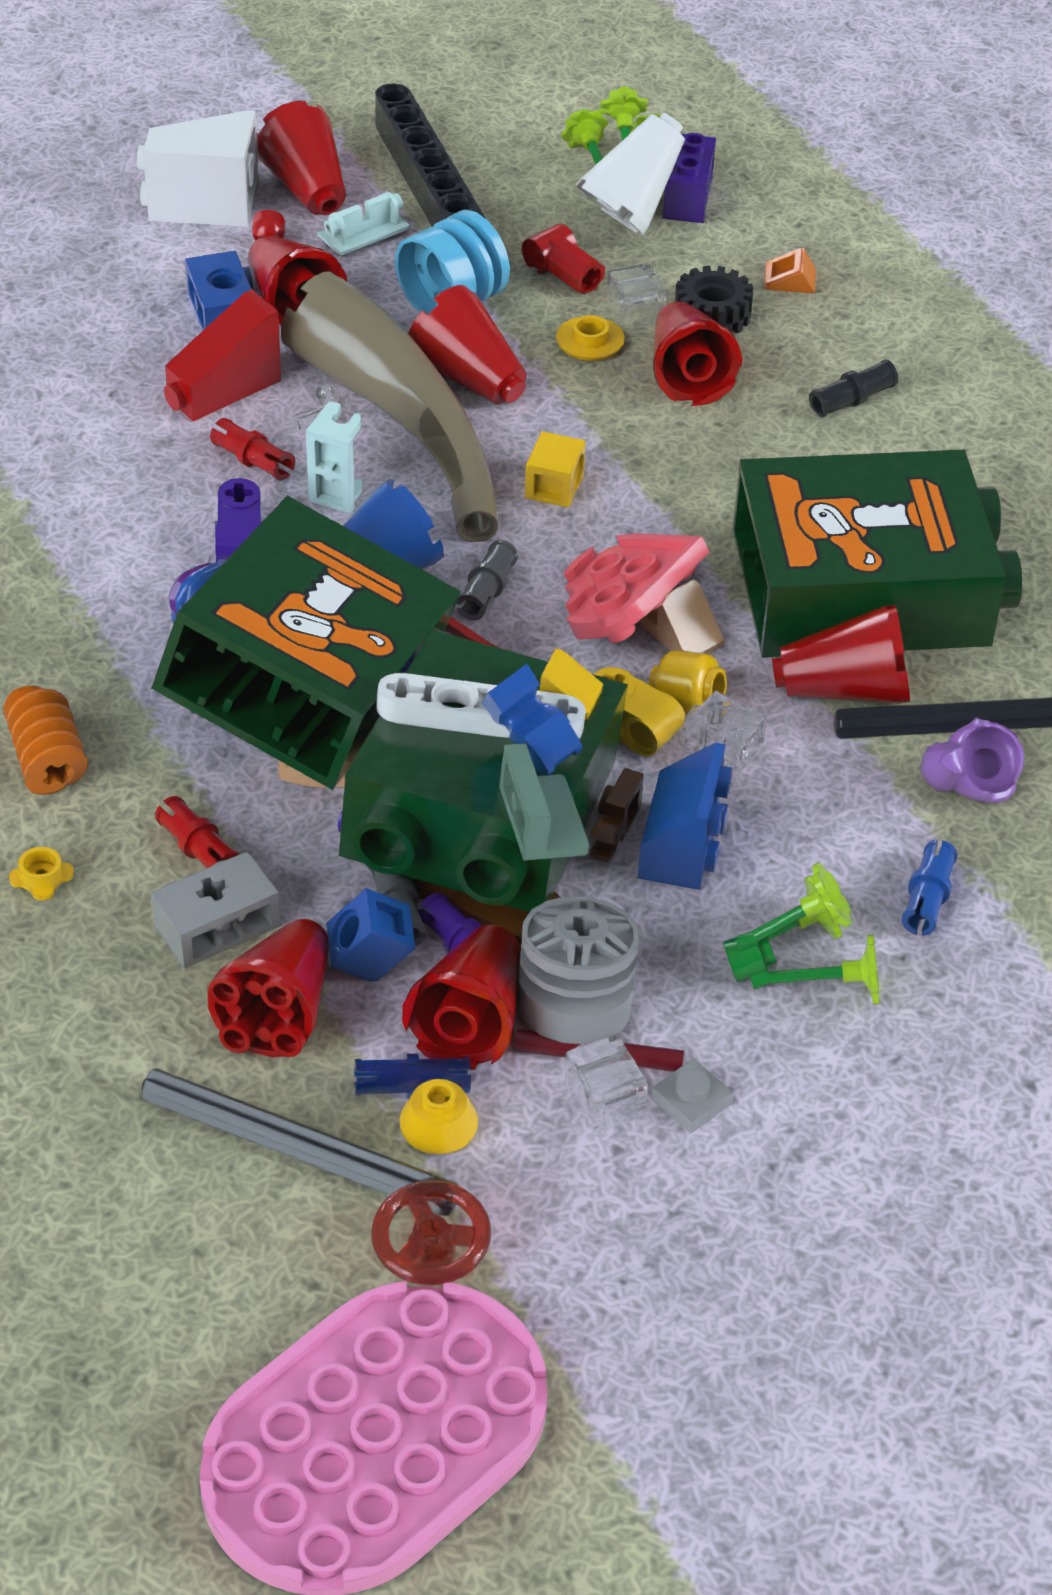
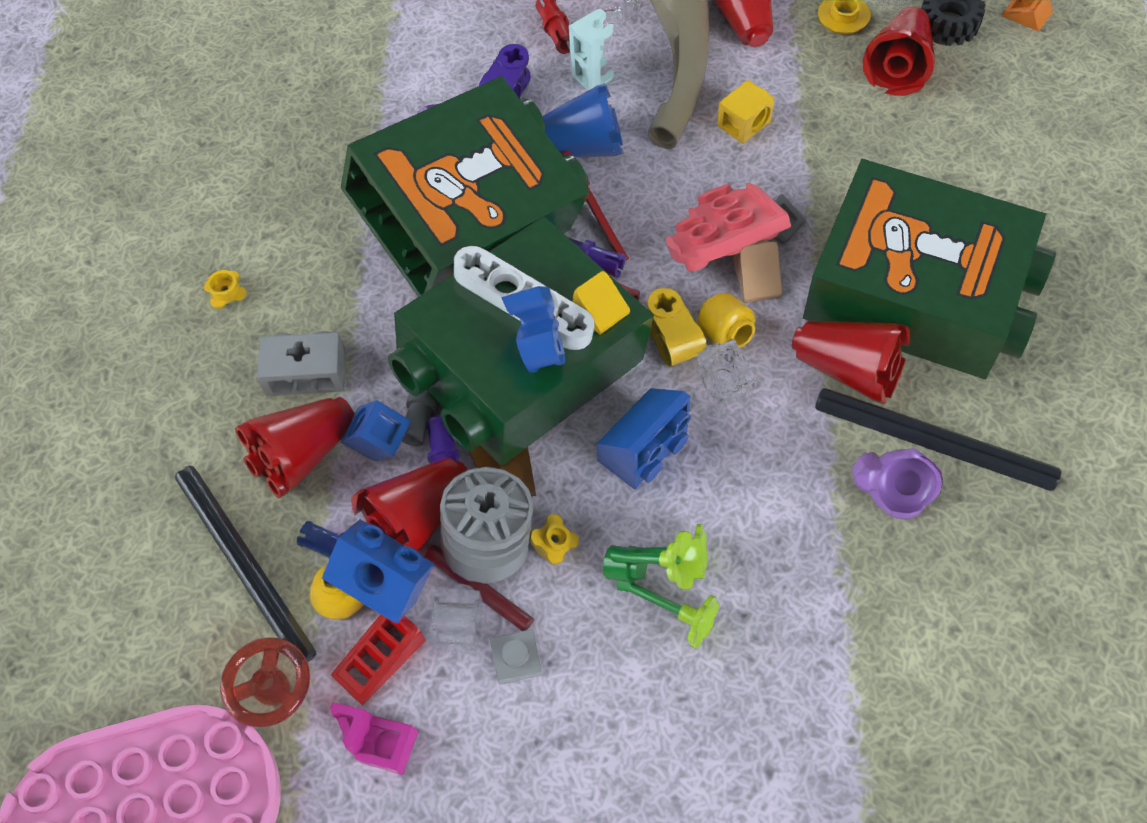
camera: 35 degrees right, 15 degrees up
(44, 738) = (282, 193): orange piece -> none
(195, 835) = (330, 302): red pin -> none
(487, 580) = (643, 181): dark grey pin -> none
(522, 1073) = (377, 570): none -> blue brick
(540, 809) = (501, 401): sand green panel -> none
(544, 1122) = (400, 654): none -> red slope
(593, 1242) = (375, 739): none -> dark pink slope
(618, 810) = (610, 404): reddish brown plate -> none
(655, 967) = (546, 547): none -> yellow plate
(853, 388) = (1014, 121): black pin -> none
(929, 887) = (796, 568): blue pin -> none

